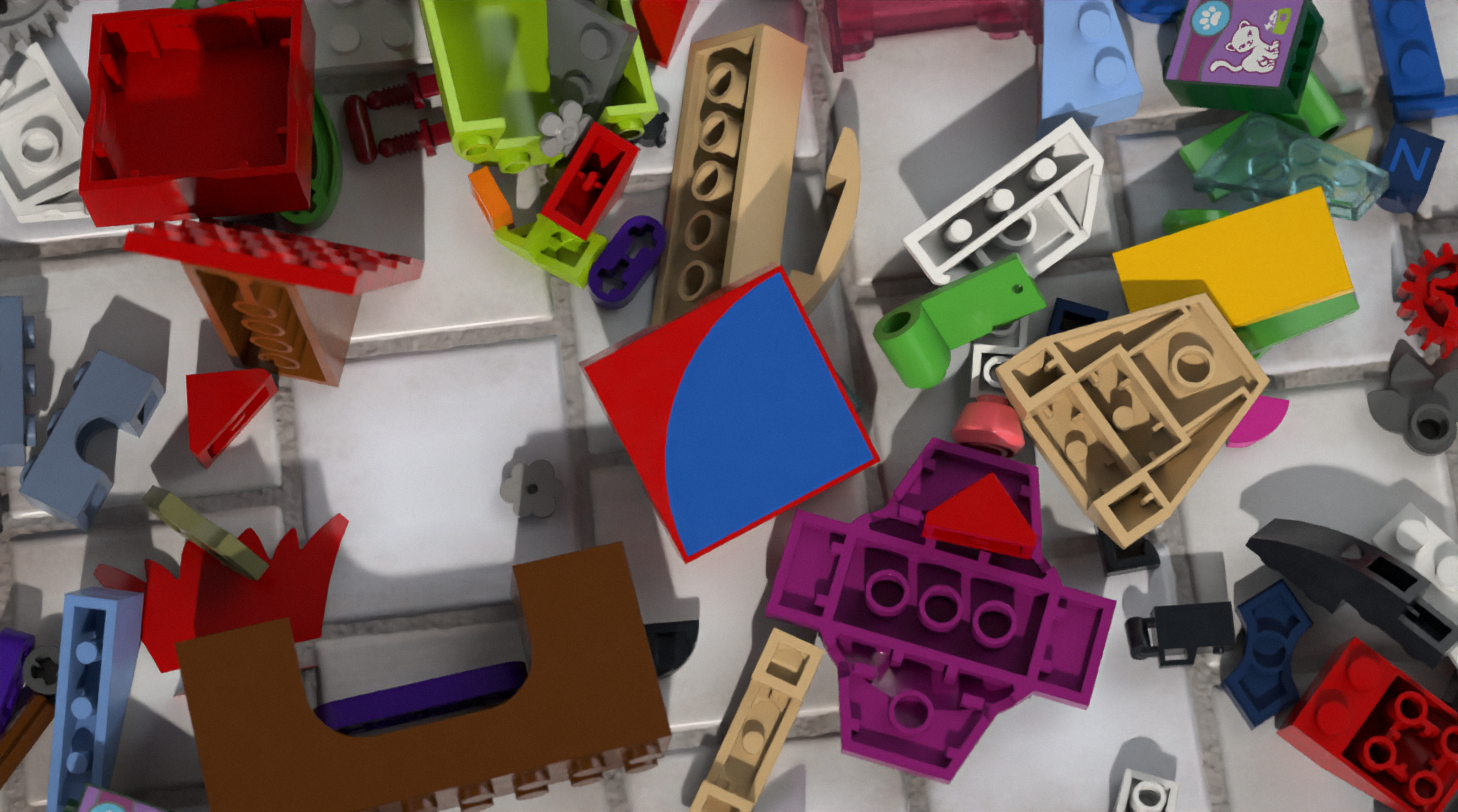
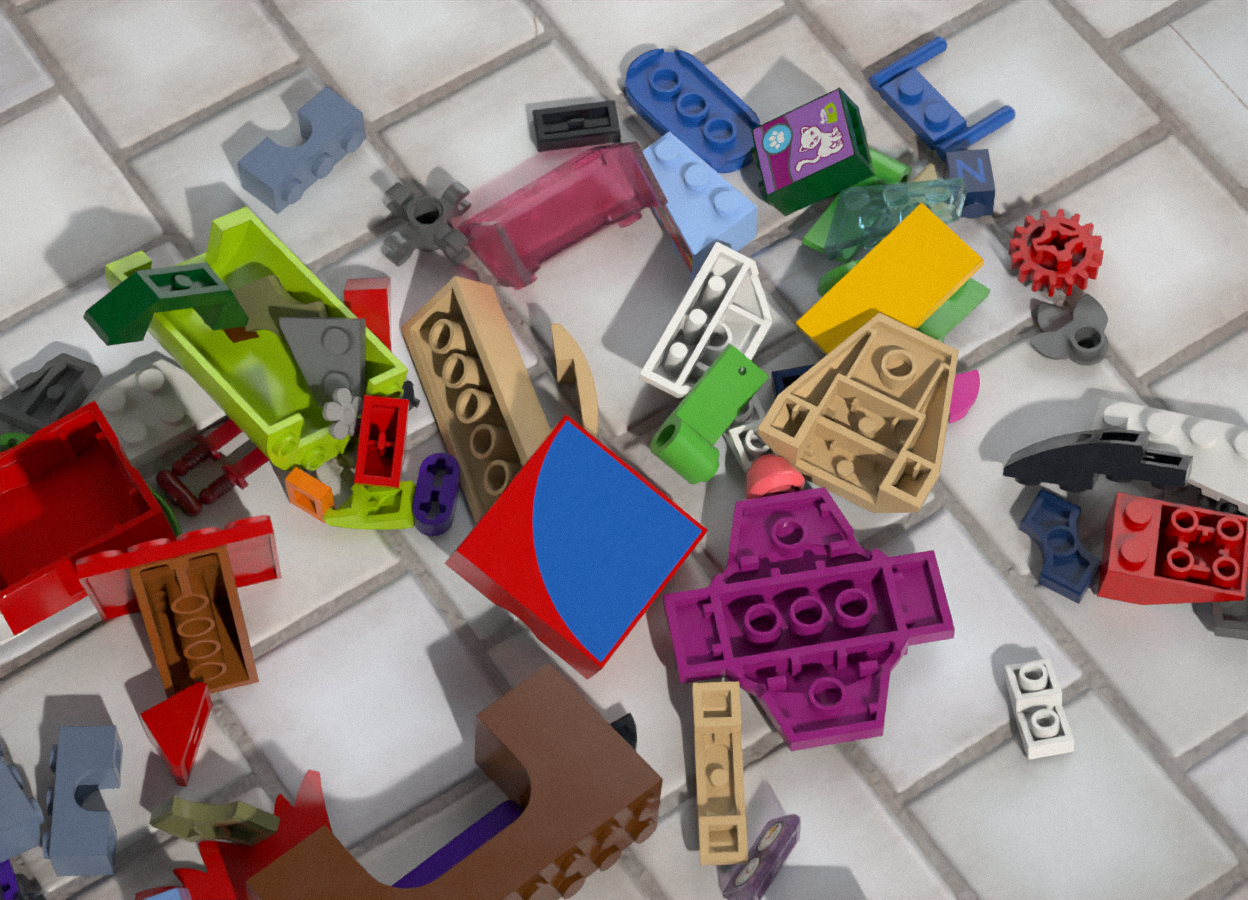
camera: 25 degrees left, 15 degrees down
(524, 477) = (450, 672): light grey plant -> none
(982, 519) = (808, 534): red slope -> none
(1136, 557) = (919, 526): black tile -> none
(1182, 631) = (992, 554): black piece -> none

